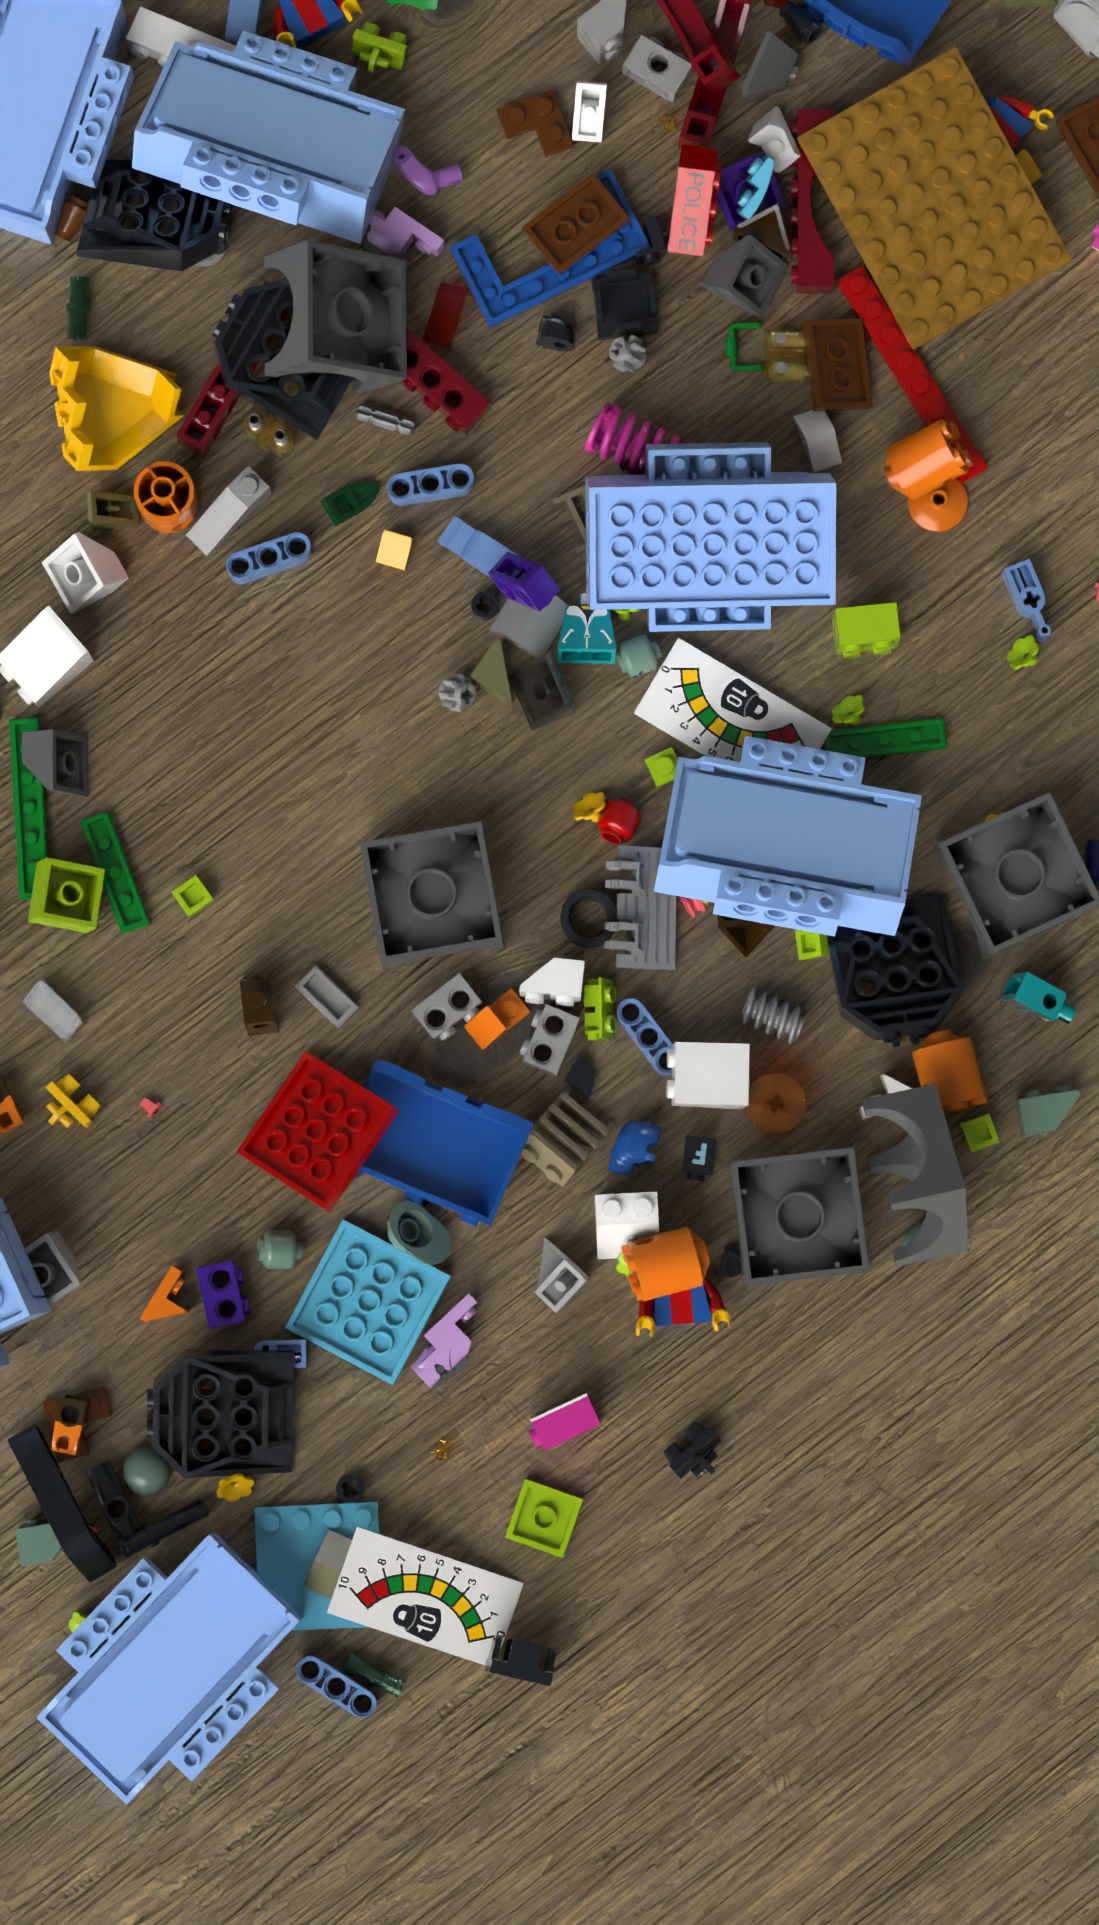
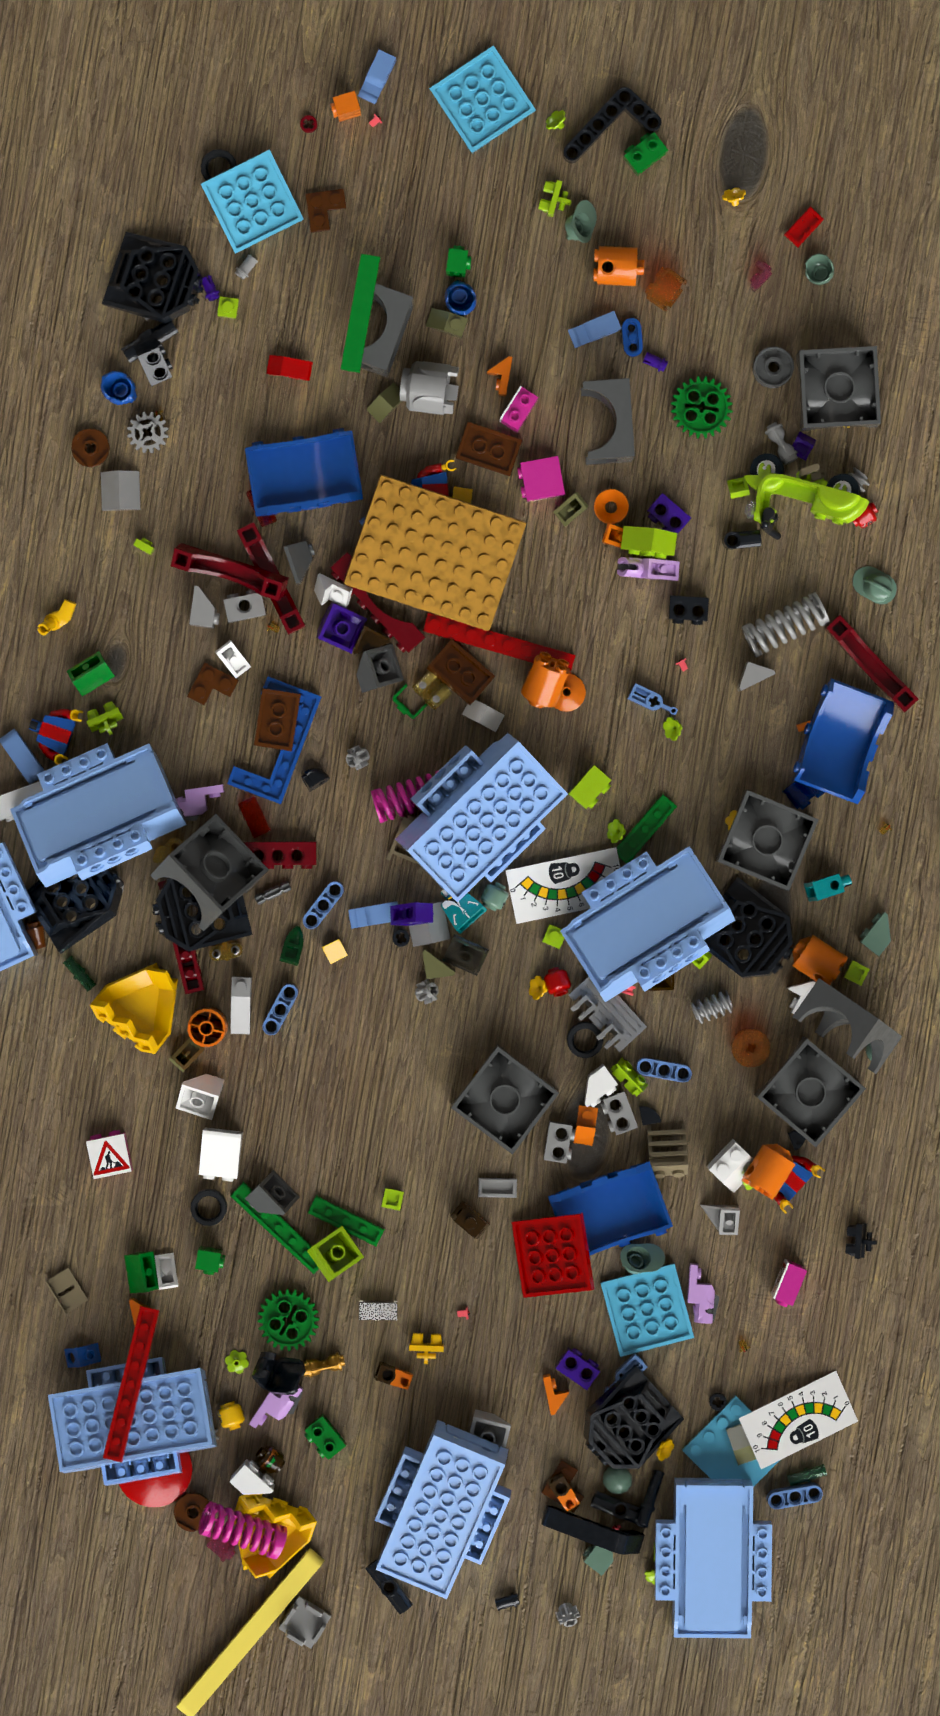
camera: 40 degrees left, 5 degrees up
(278, 1249) = (584, 1324): sand green head -> none
(422, 177) = (184, 762): medium lavender arm -> none
(521, 1661) = (868, 1409): black panel -> none
(543, 1518) = (818, 1333): lime tile -> none
(624, 304) = (334, 735): black panel -> none
(632, 1146) = (702, 1127): blue hair -> none
(656, 236) = (318, 688): black bracket -> none
(695, 200) = (324, 659): brick -> none
(698, 1157) = (737, 1104): black brick -> none
(709, 1075) = (708, 1064): white slope -> none
(759, 178) = (343, 618): medium azure slope -> none
(802, 23) = (291, 521): black cone -> none

